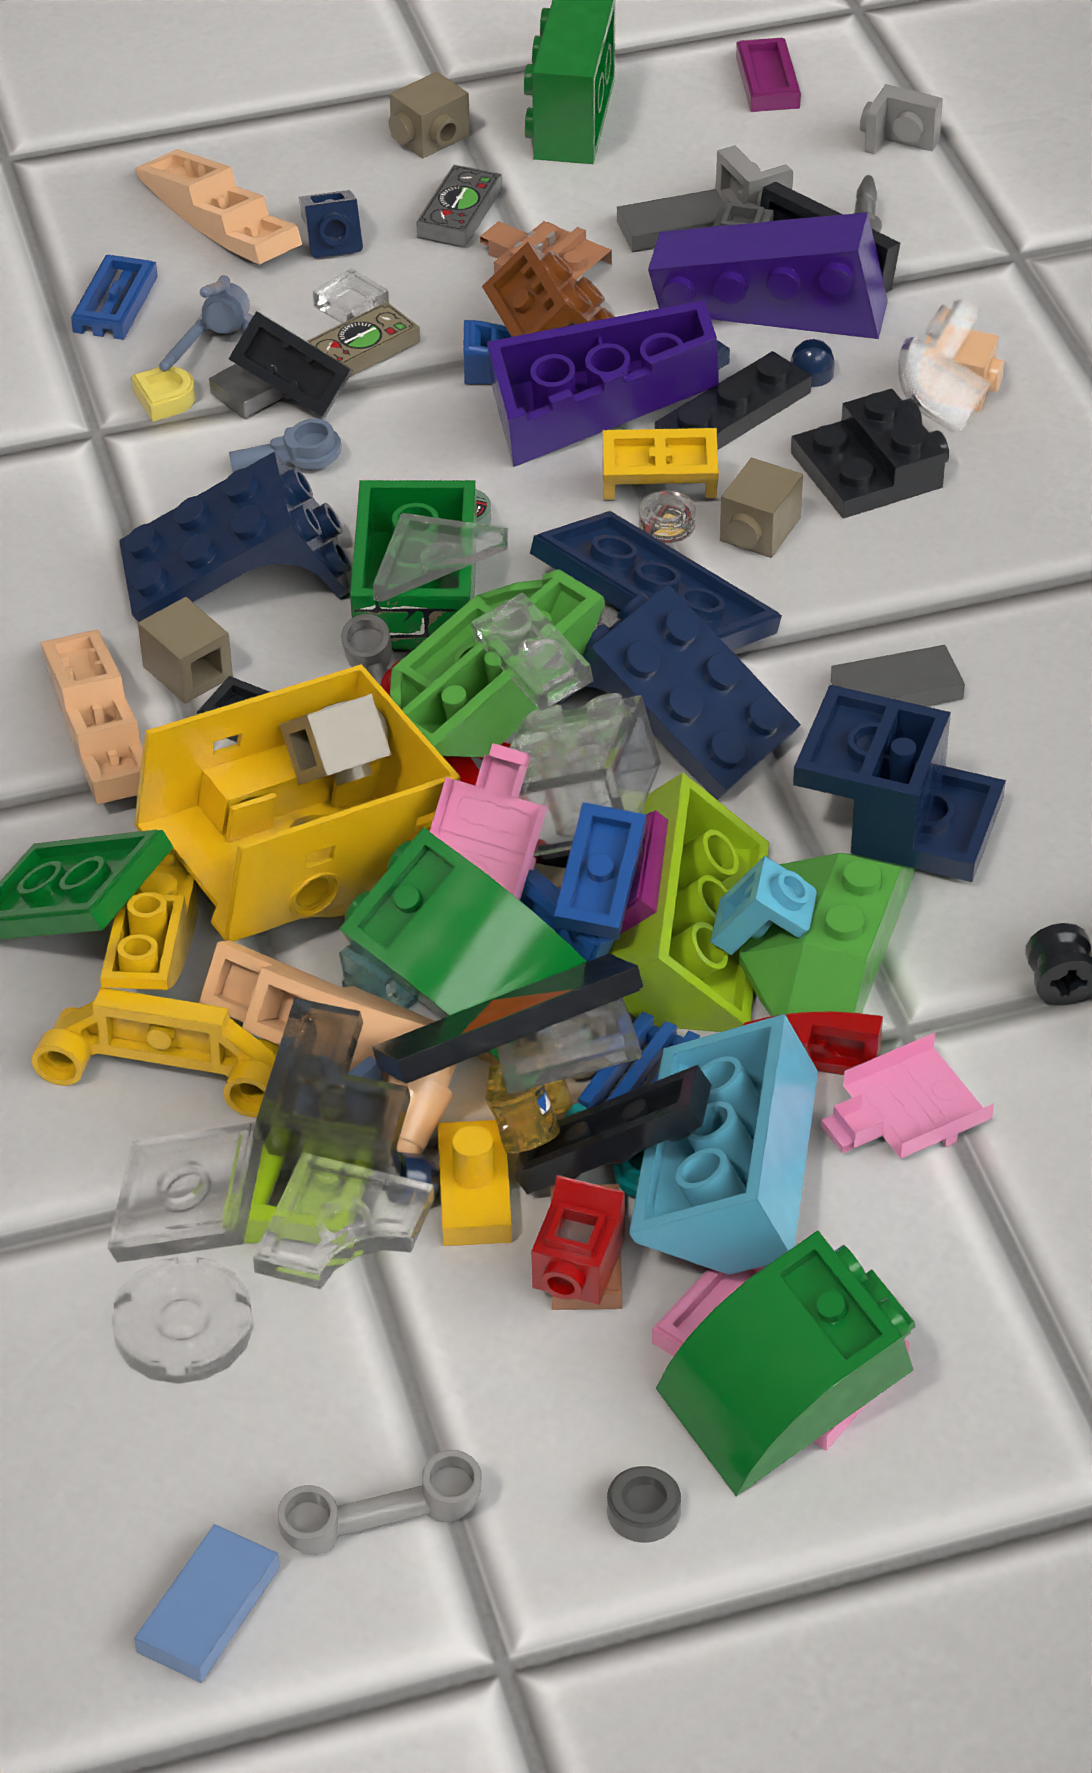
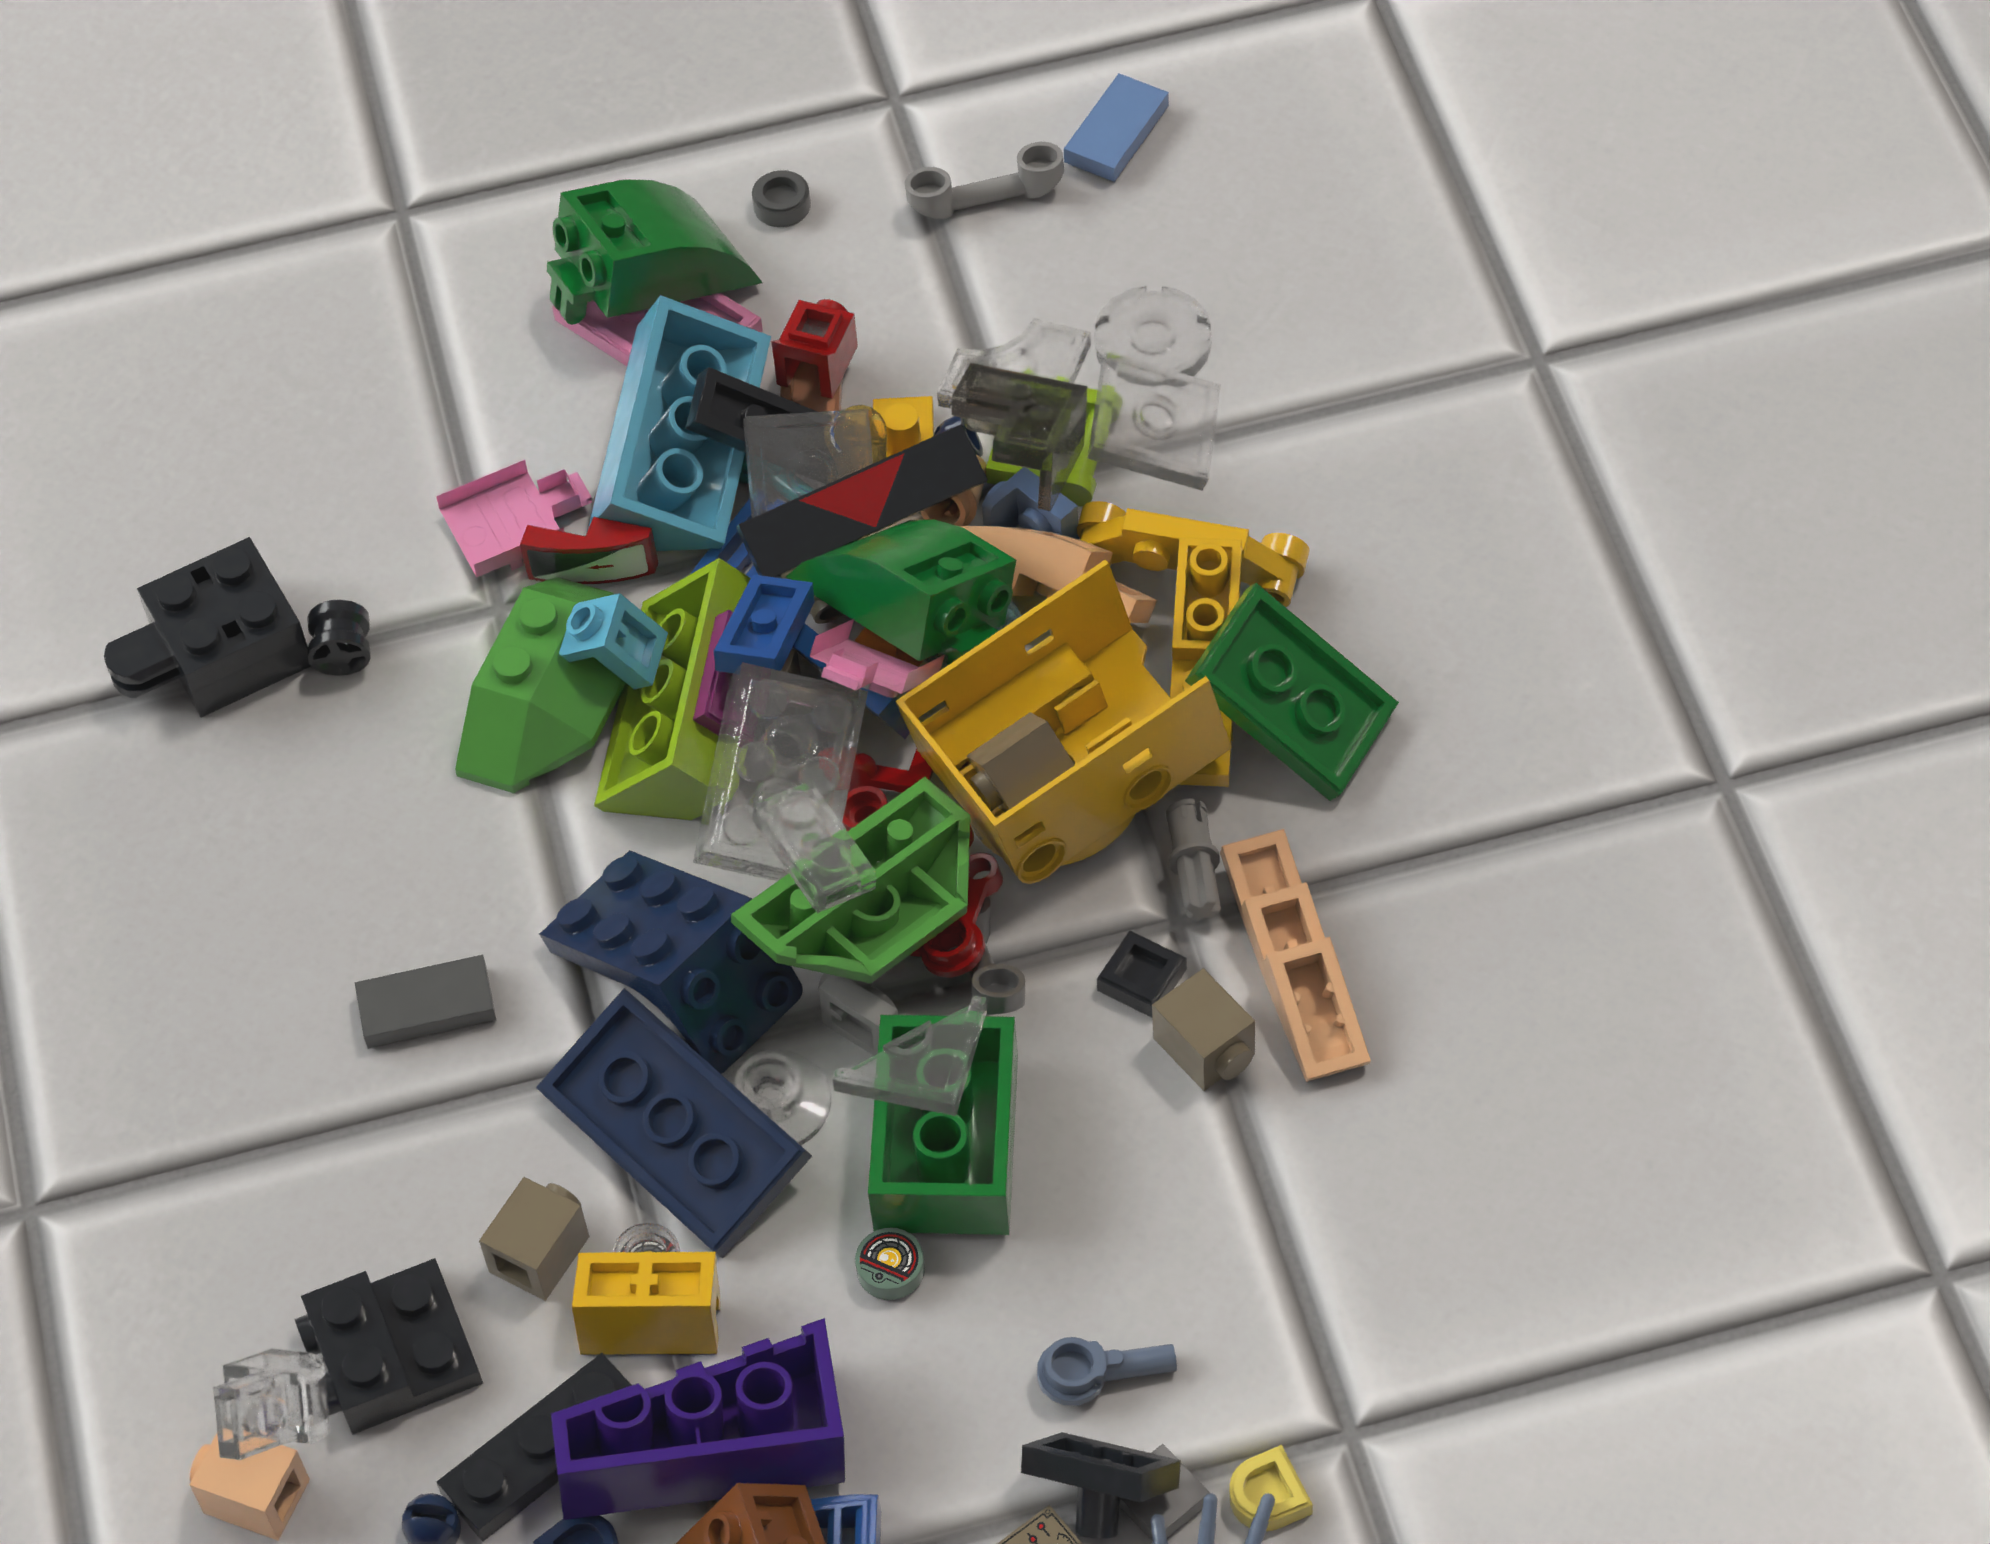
camera: 175 degrees left, 10 degrees up
(237, 525) = (1153, 1152): dark blue bracket -> none
(903, 793) = (453, 800): dark blue bracket -> none

